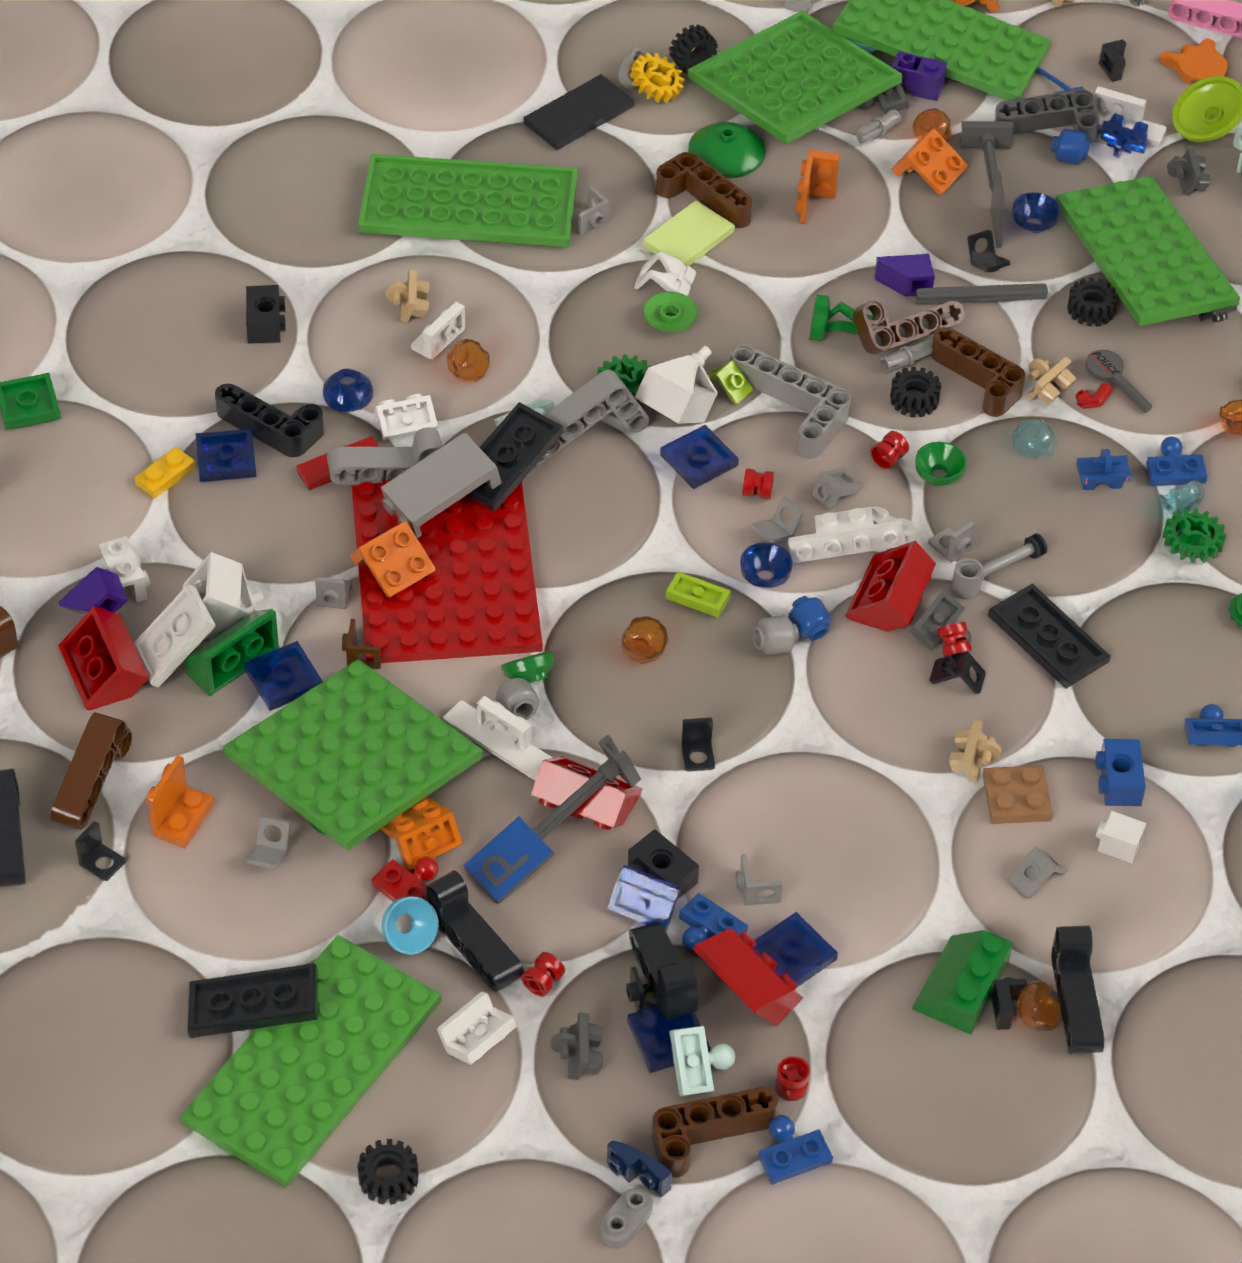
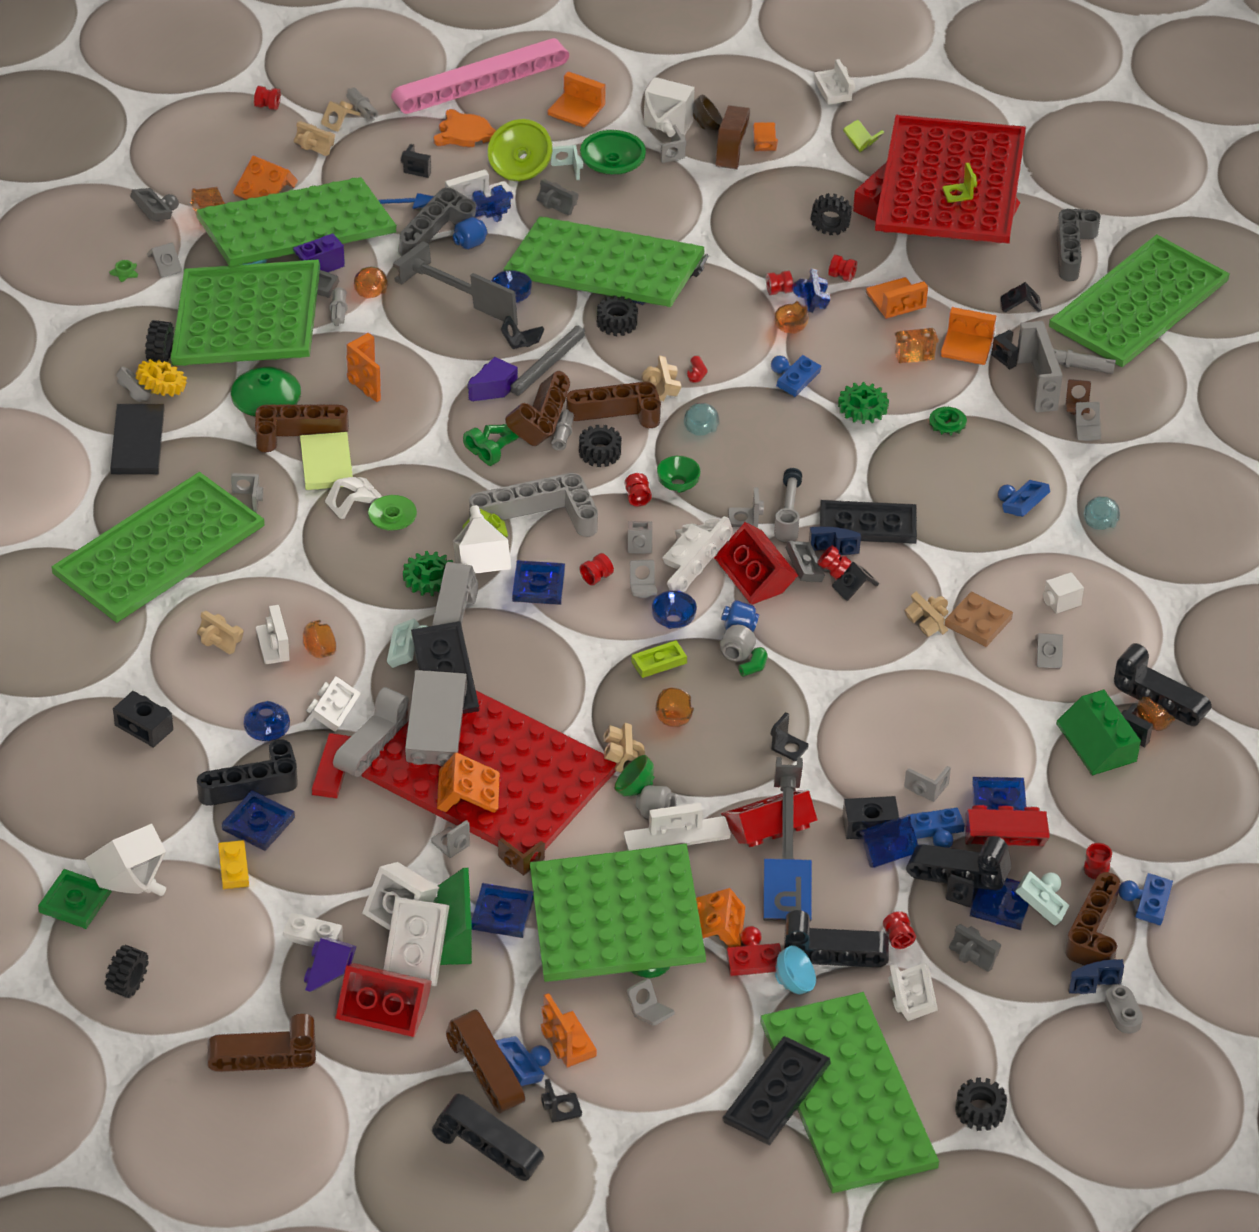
camera: 50 degrees left, 5 degrees down
(82, 403) = (129, 863): none -> white piece
(119, 795) = (525, 1064): none -> blue plate
(566, 627) = (621, 746): none -> tan hips
(773, 665) = (756, 664): none -> green arm
(933, 161) = (397, 299): orange bracket -> none
(994, 631) = (844, 540): none -> dark blue slope
(1103, 469) = (767, 406): blue hips -> none
(1108, 367) = (679, 347): dark grey piece -> none
(1121, 772) = (1014, 559): blue brick -> none
(1184, 498) = (829, 389): clear light blue hair -> none

